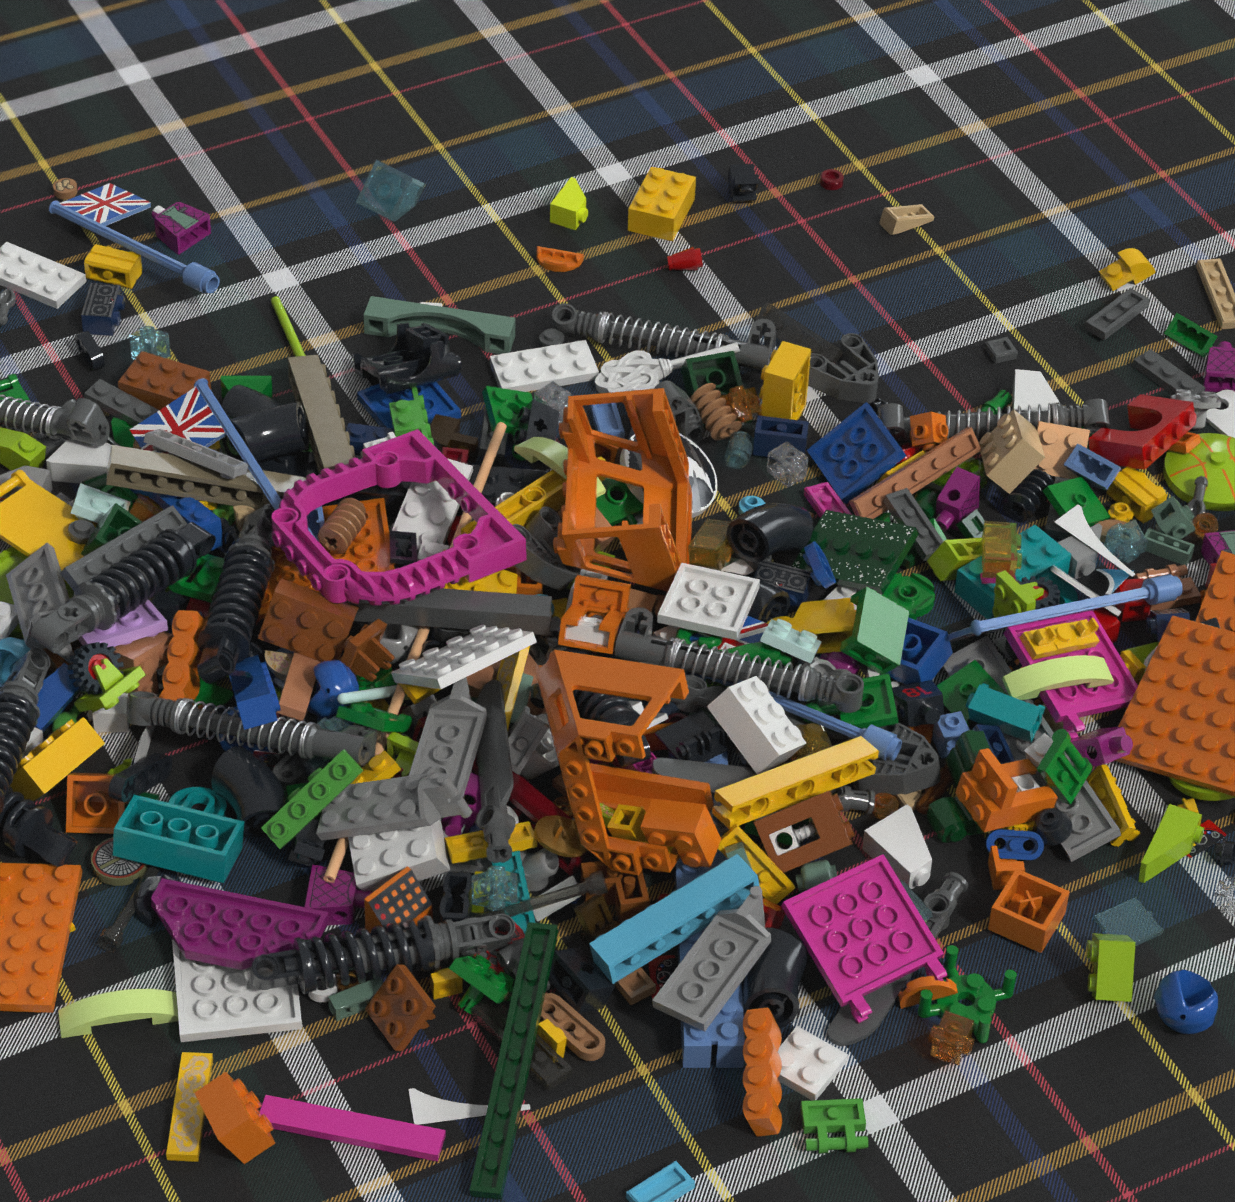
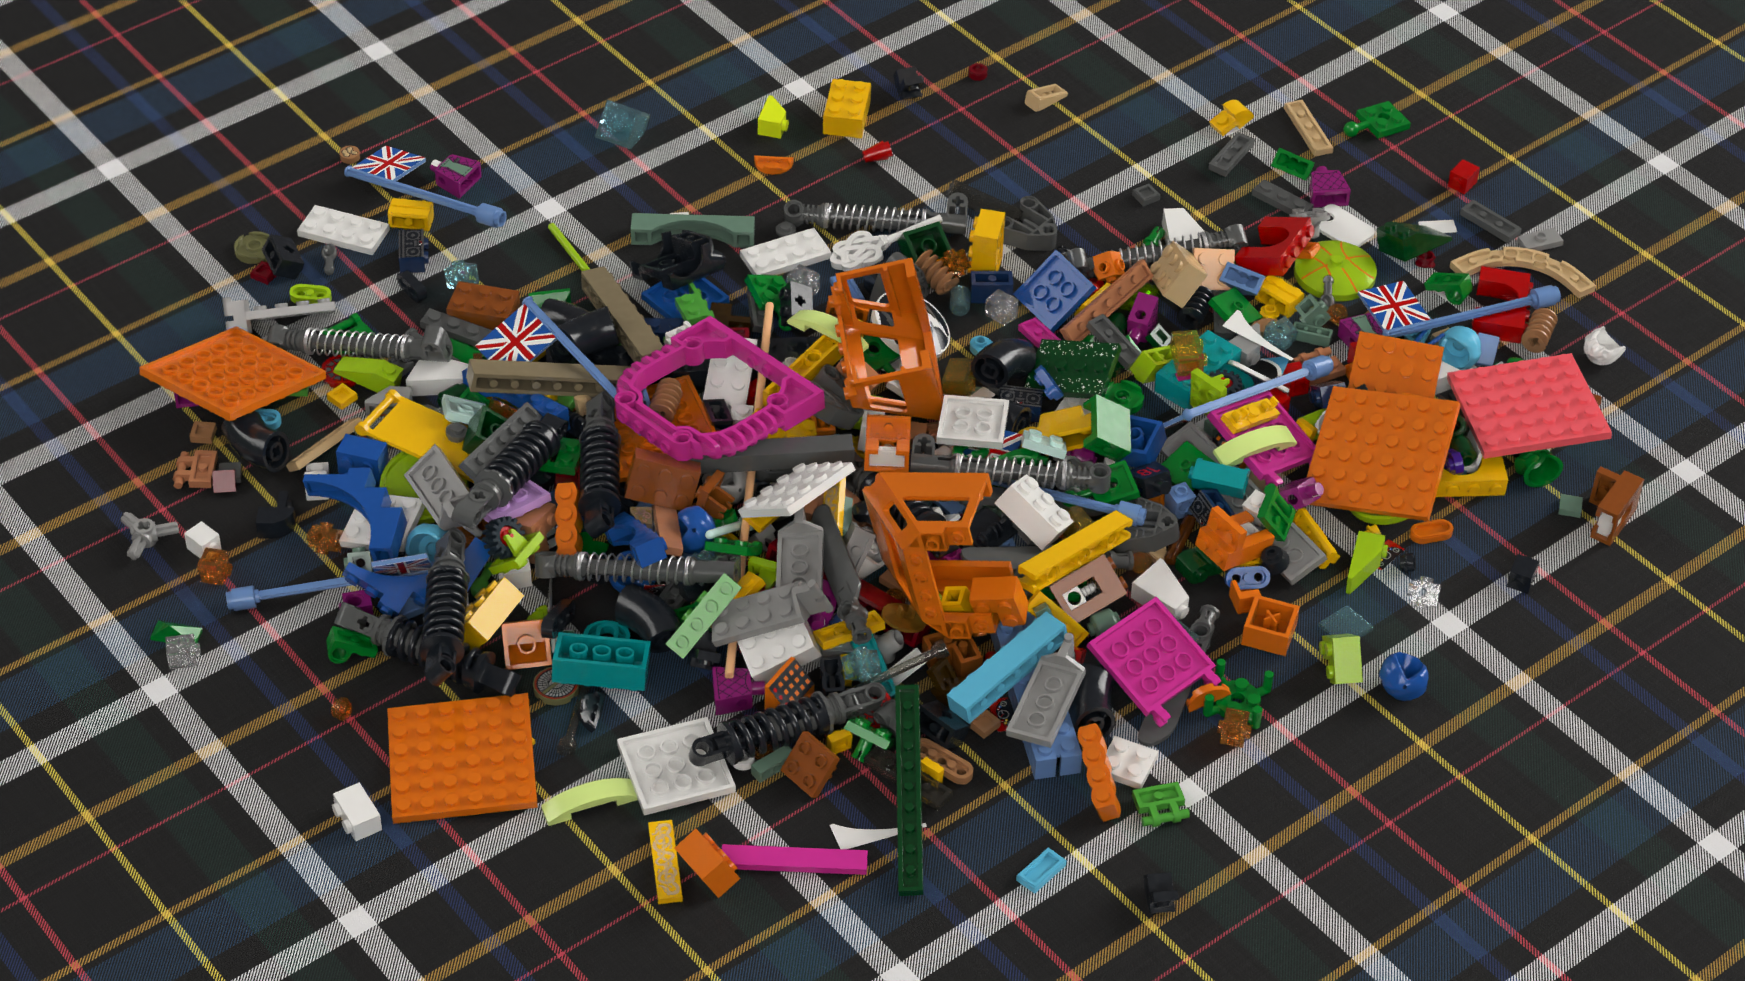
camera: 10 degrees left, 0 degrees up
(168, 442) = (511, 351): light grey plate -> none
(231, 926) = (661, 722): magenta plate -> none
(964, 753) = (1197, 514): dark green brick -> none

